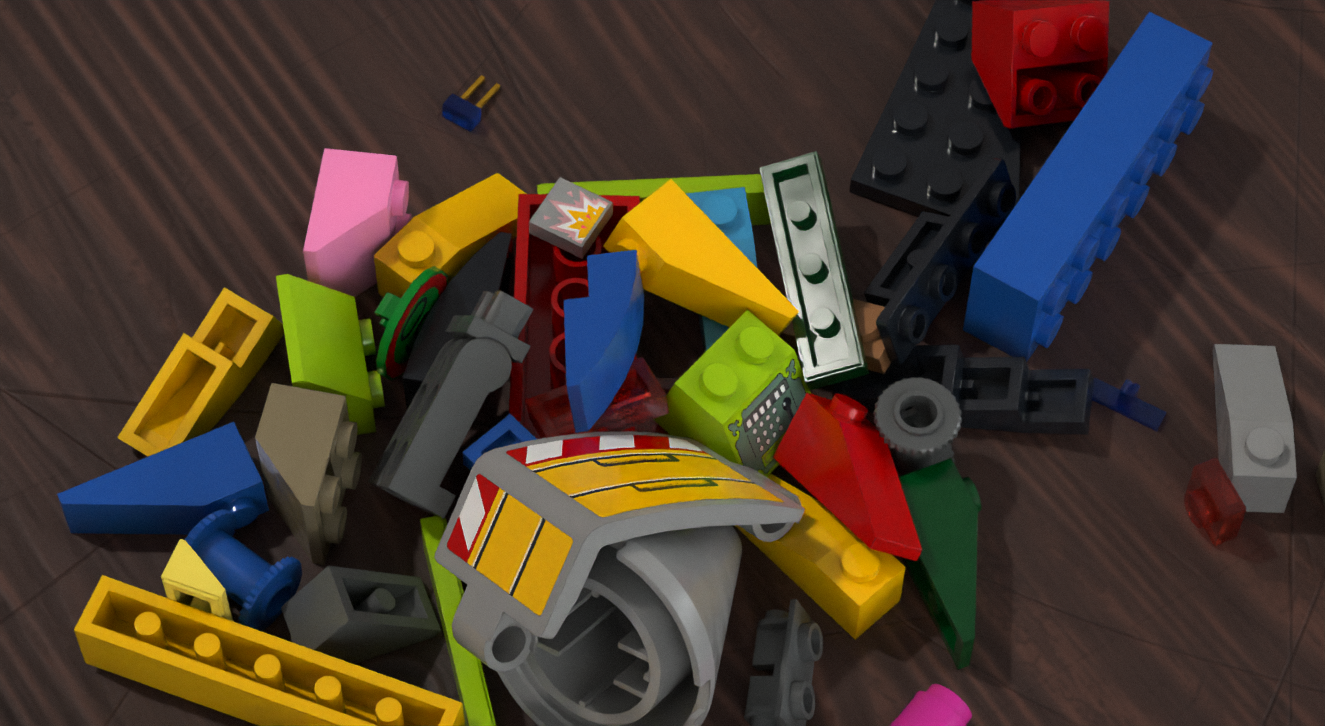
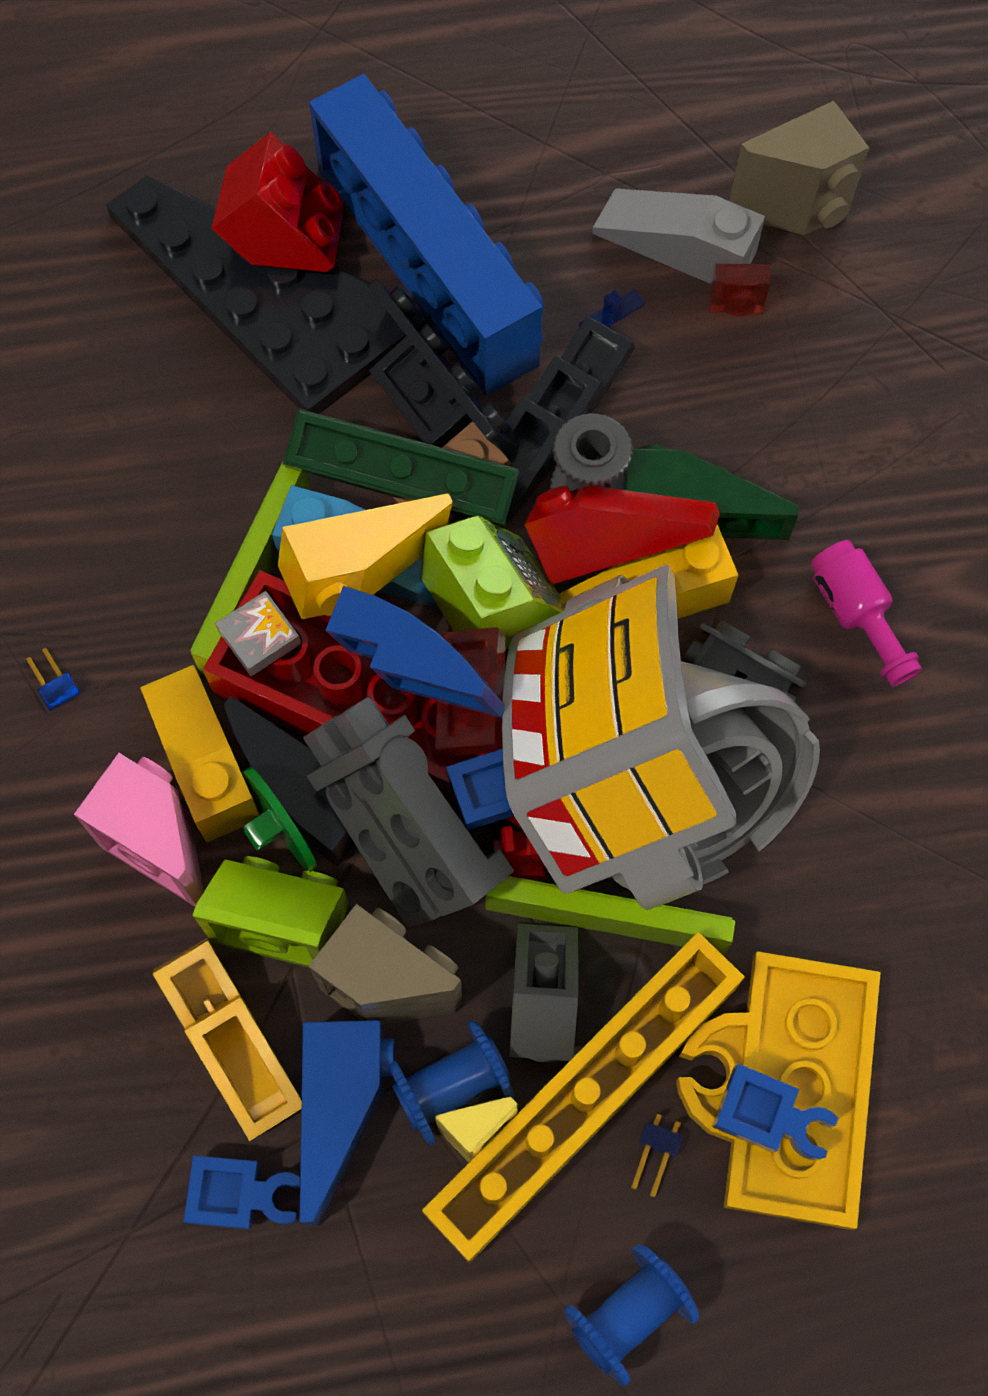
camera: 65 degrees left, 10 degrees up
(65, 443) = (229, 1192): none -> blue plate

